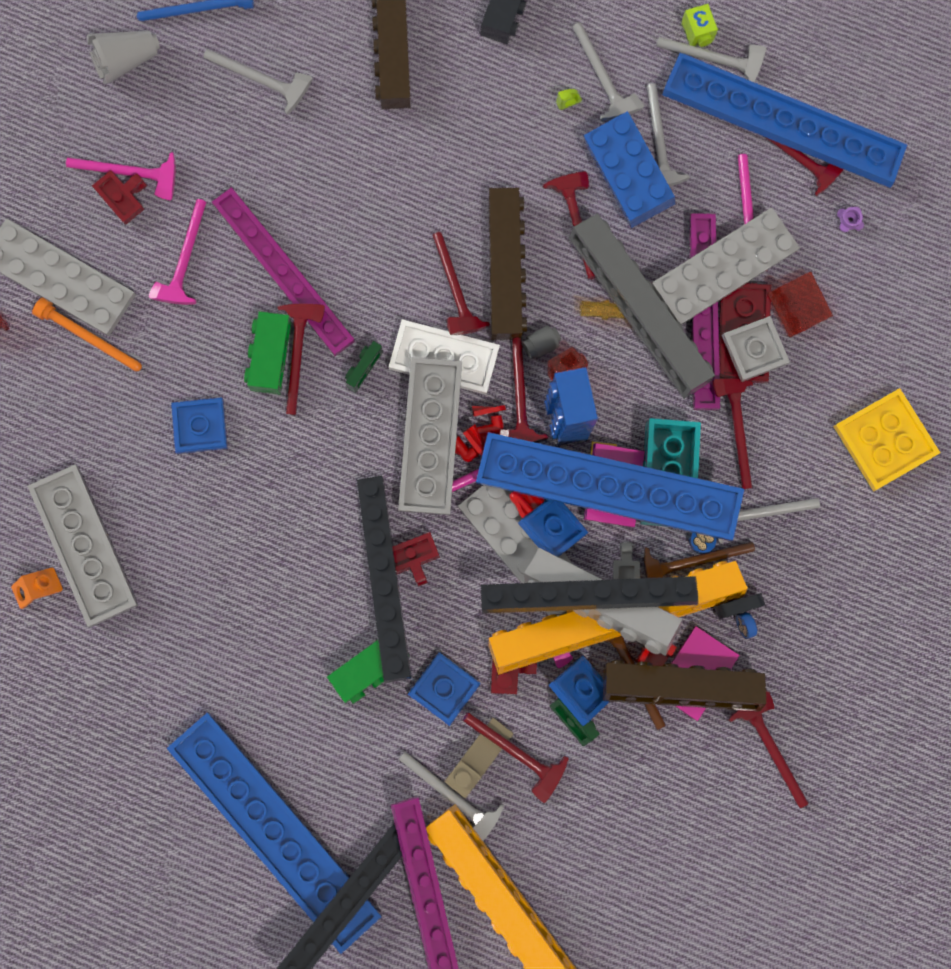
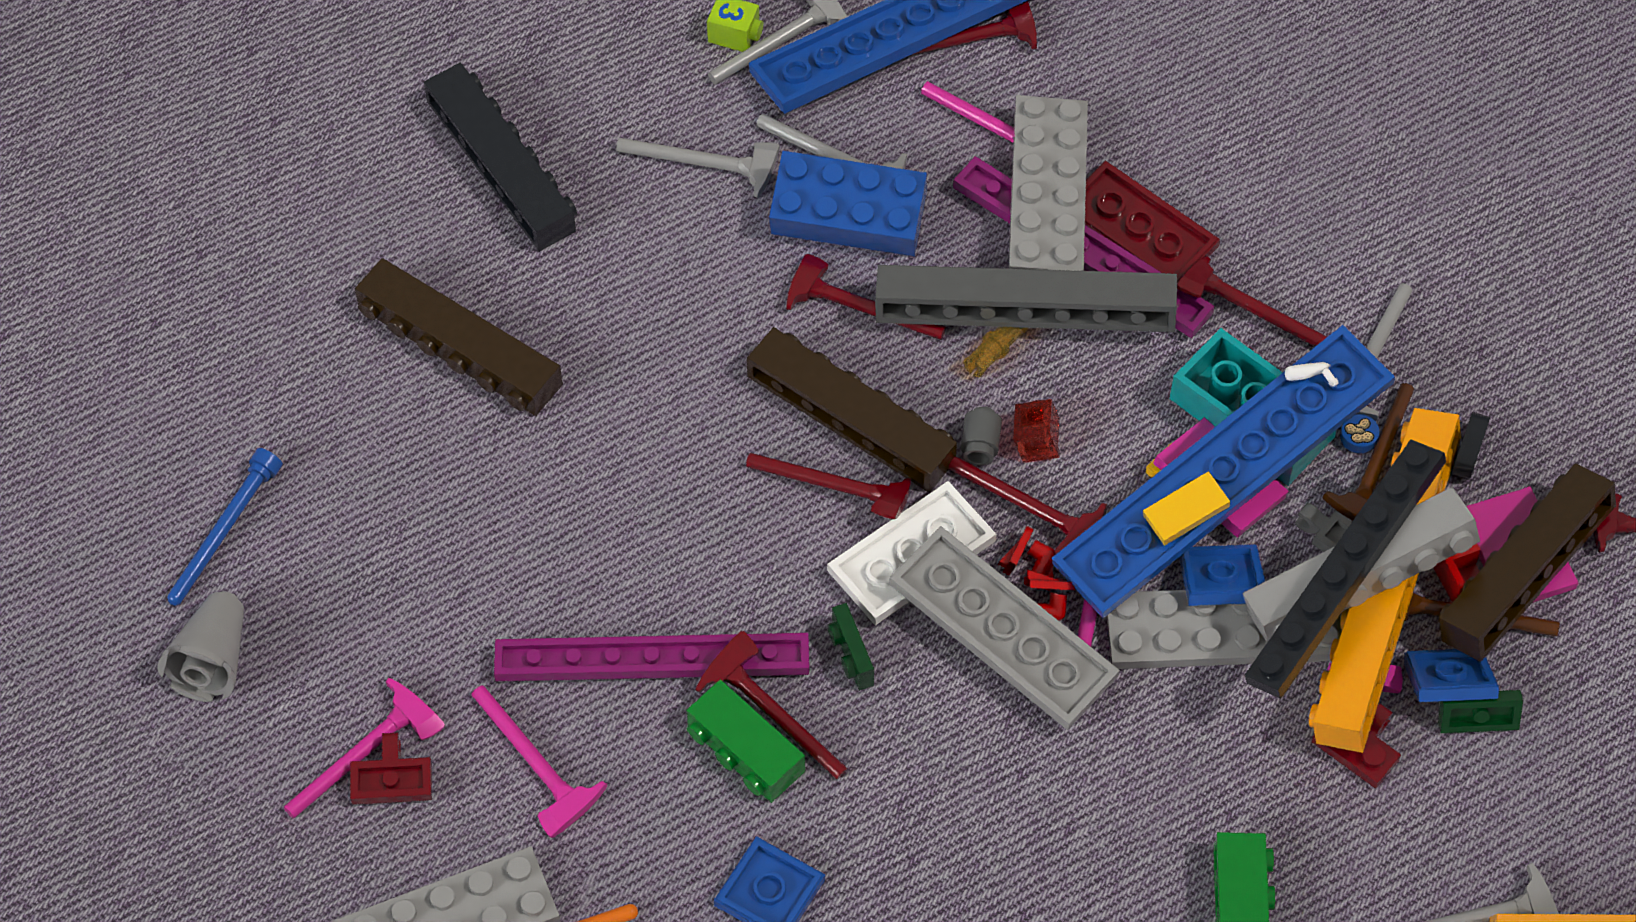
camera: 45 degrees left, 20 degrees down
(293, 92) = (429, 494): light grey piece -> none
(384, 580) = (1144, 798): black plate -> none
(414, 554) = (1136, 753): dark red plate -> none
(444, 689) = (1332, 835): blue tile -> none
(476, 761) = (1451, 851): dark tan slope -> none
(525, 503) = (1167, 581): red piece -> none
(548, 775) = (1528, 788): dark red piece -> none
(566, 482) = (1186, 508): none -> yellow tile
(568, 98) = (702, 212): lime tile -> none
(571, 406) = (1099, 438): blue brick -> none
(697, 489) = (1308, 370): none -> white piece
(746, 625) = (1499, 454): blue tile -> none
(755, 349) = (1173, 222): light grey plate -> none
(800, 304) = (1153, 148): clear red hinge -> none
(855, 214) = (1092, 26): medium lavender plate -> none
(886, 439) = (1384, 170): yellow plate -> none

